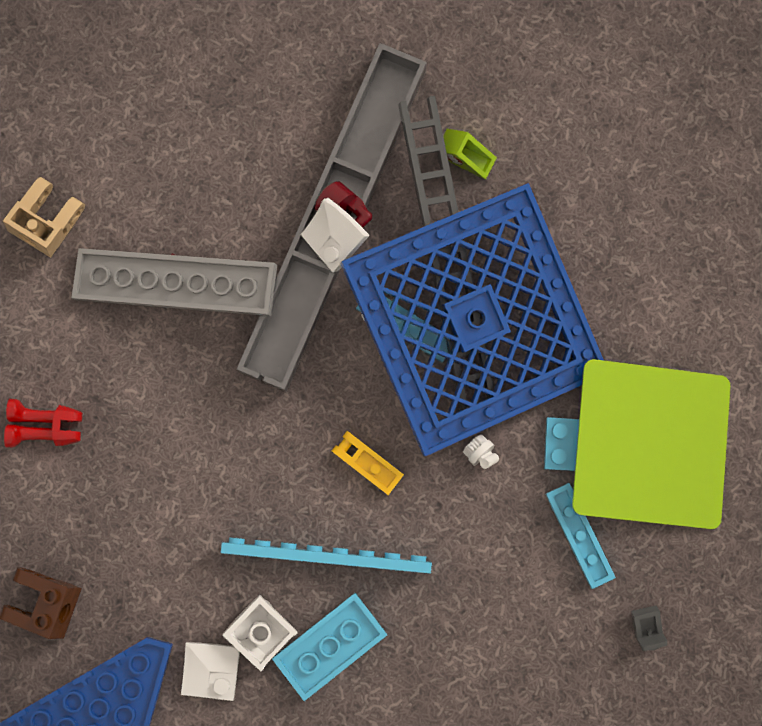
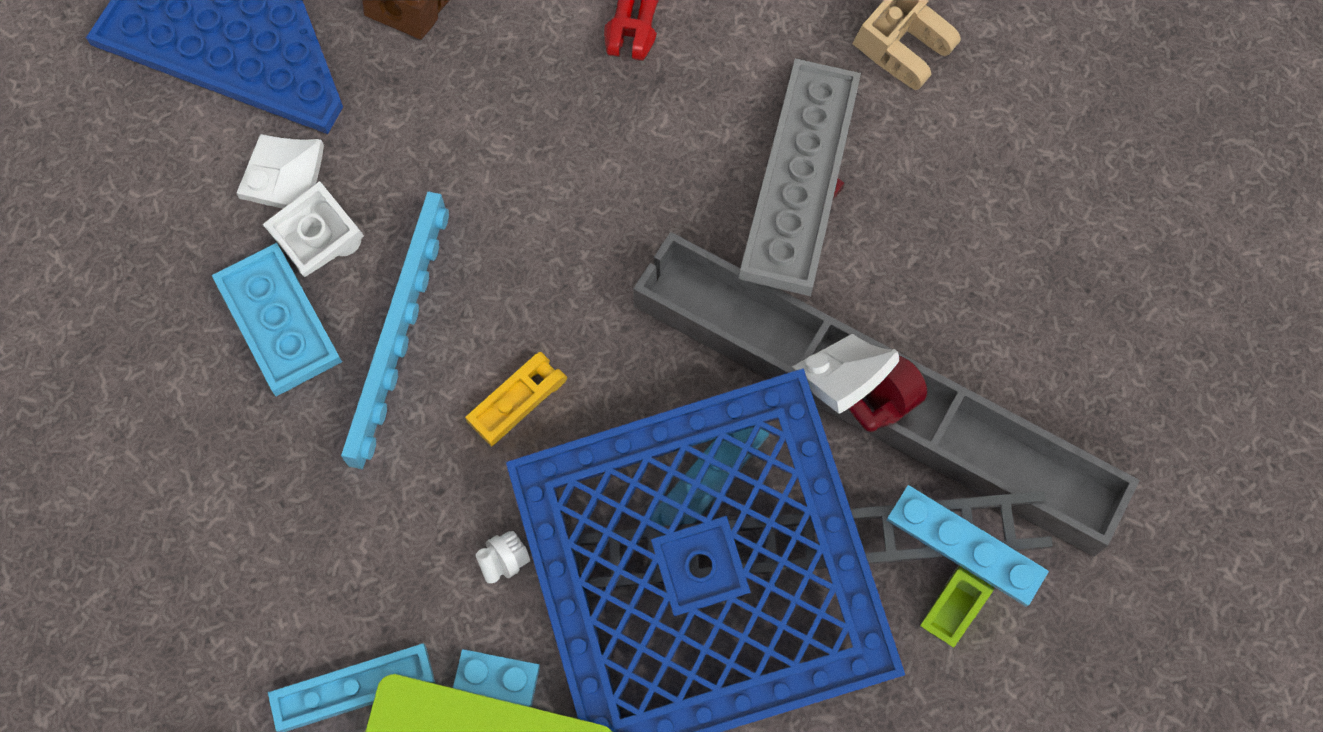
camera: 100 degrees right, 15 degrees down
(442, 149) = (967, 546): none -> medium azure plate

